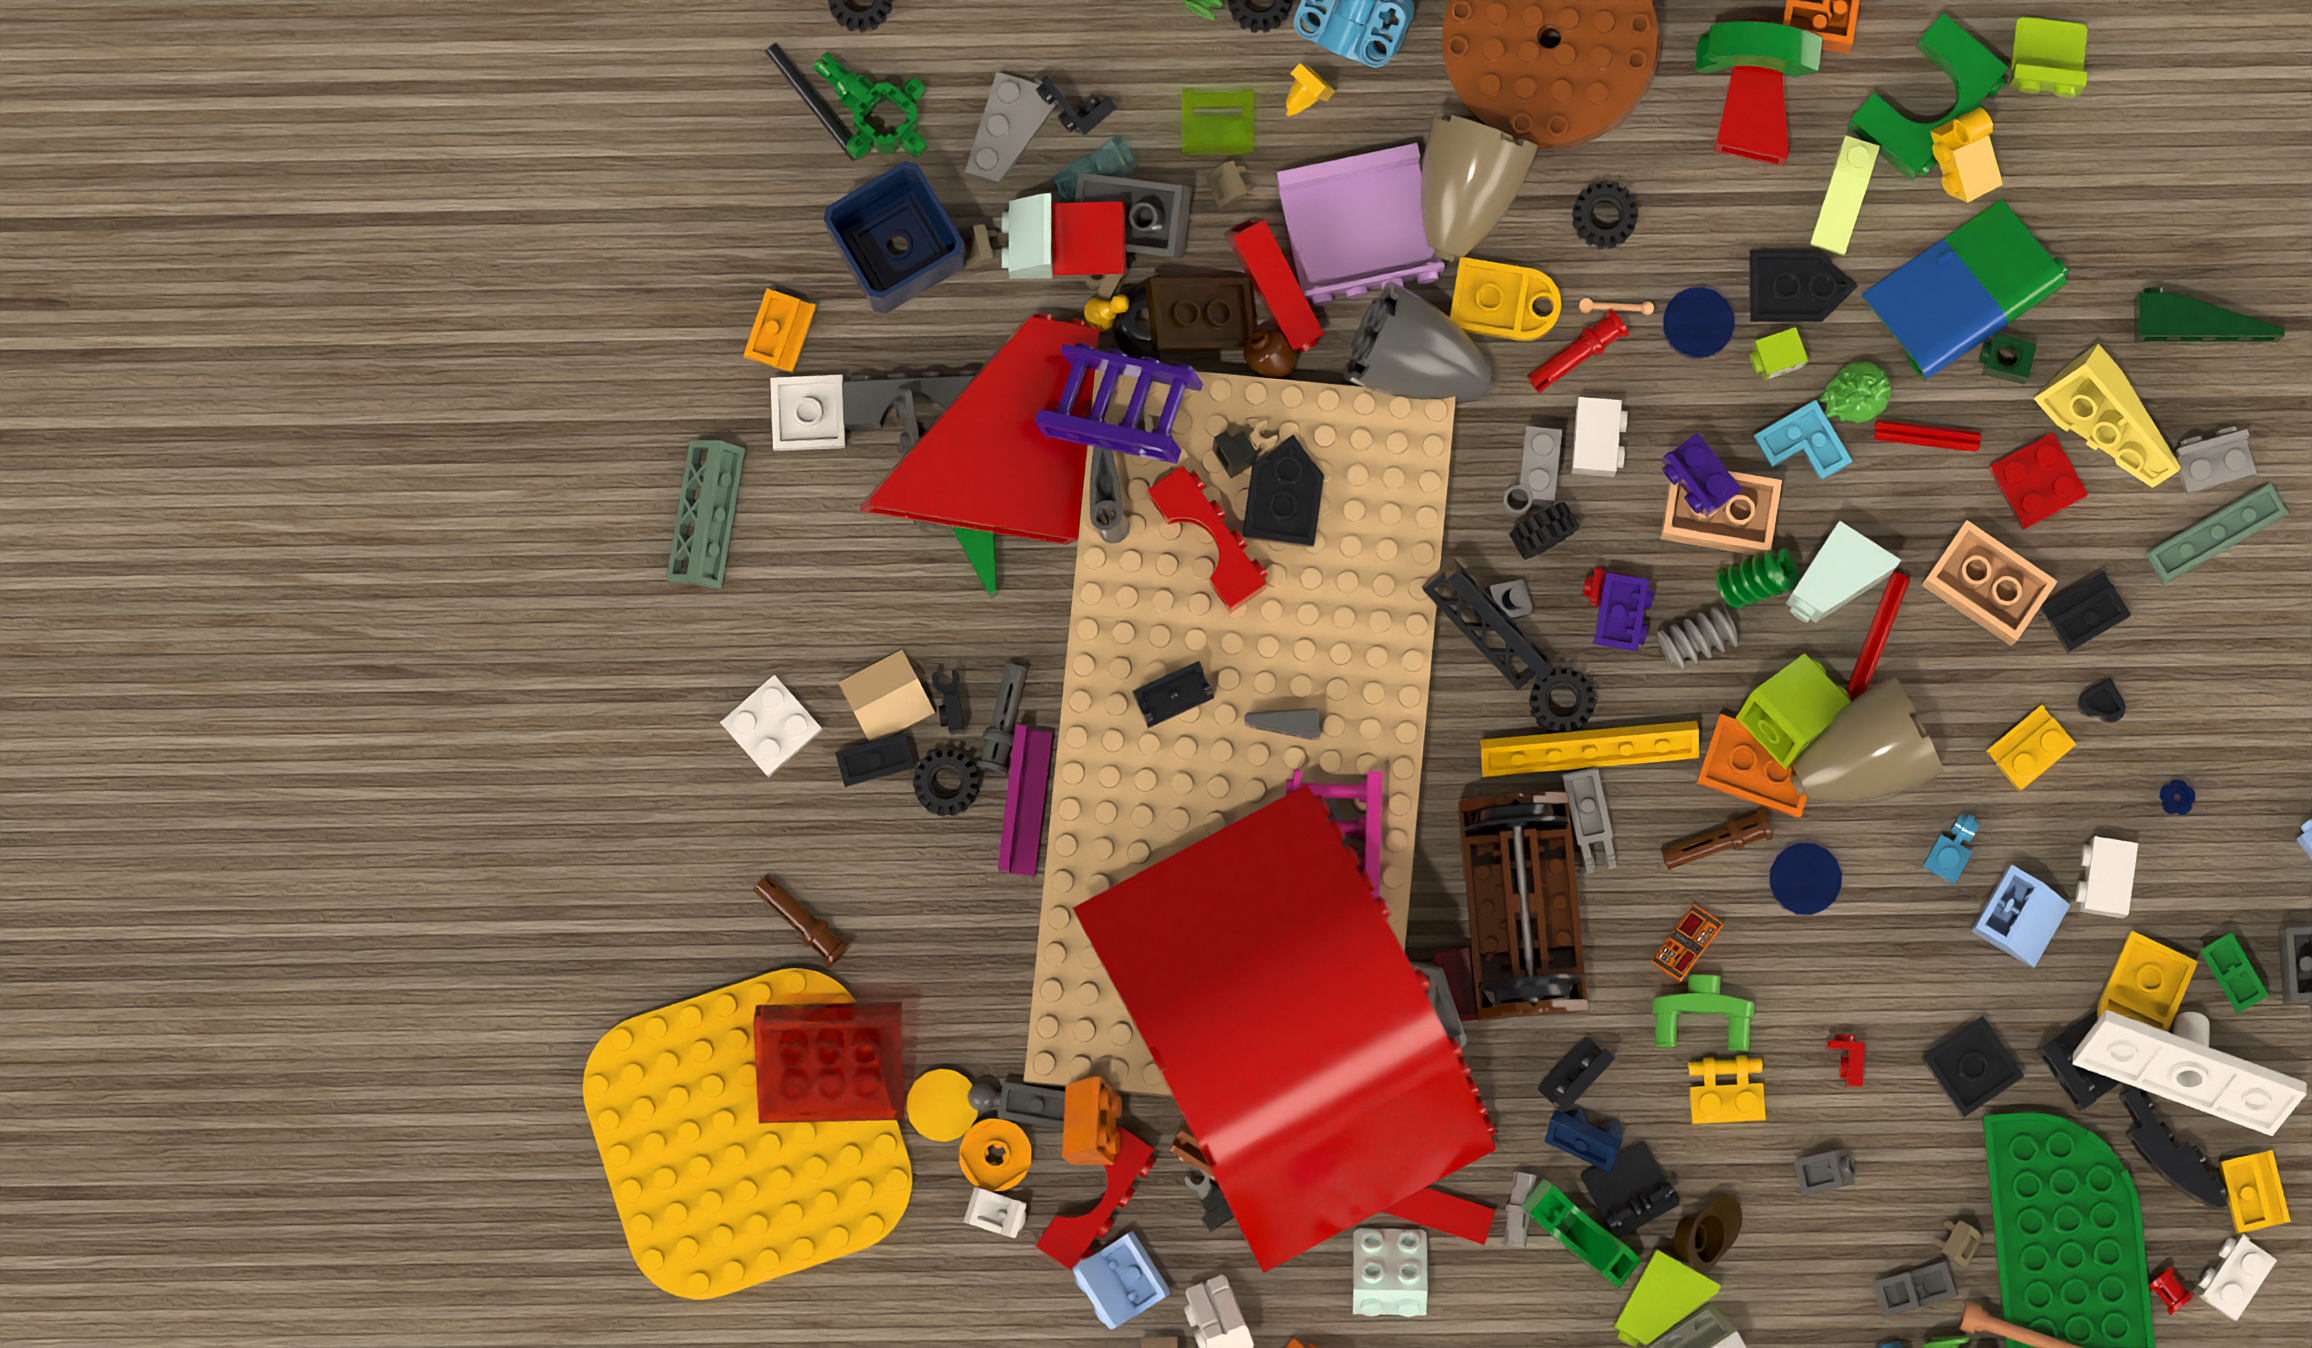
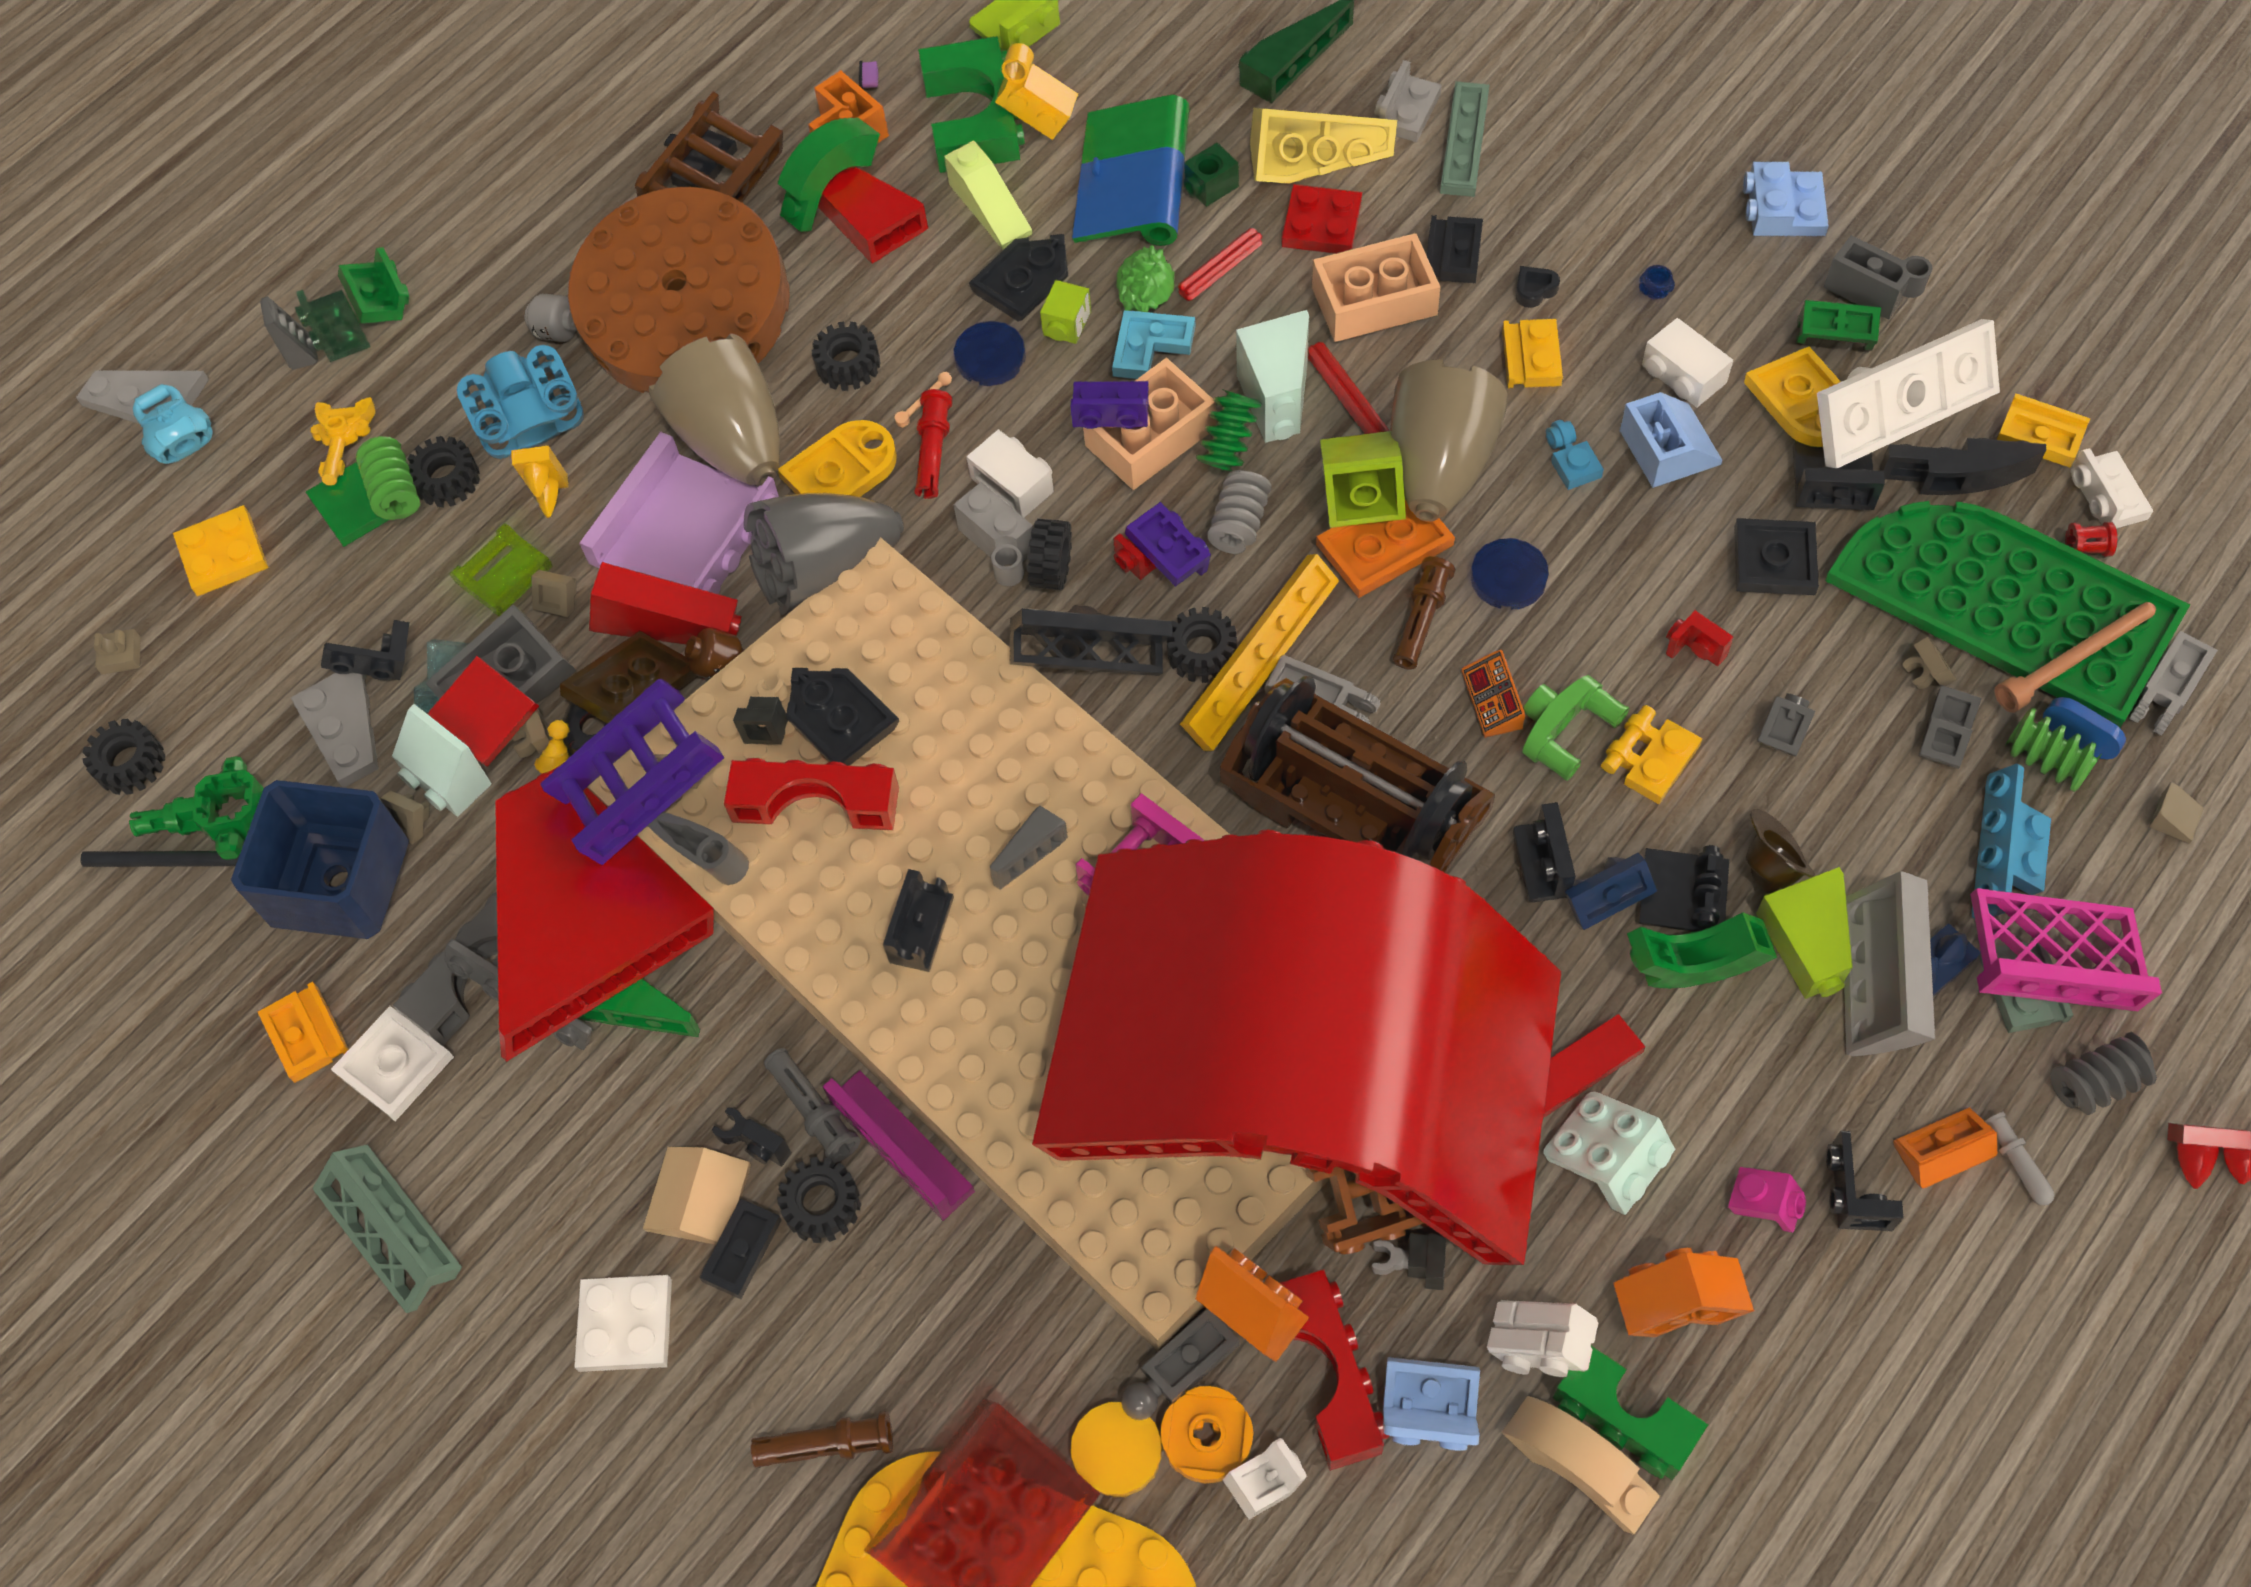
camera: 50 degrees left, 20 degrees down
(1517, 1217) = (1633, 994): light grey pin -> none

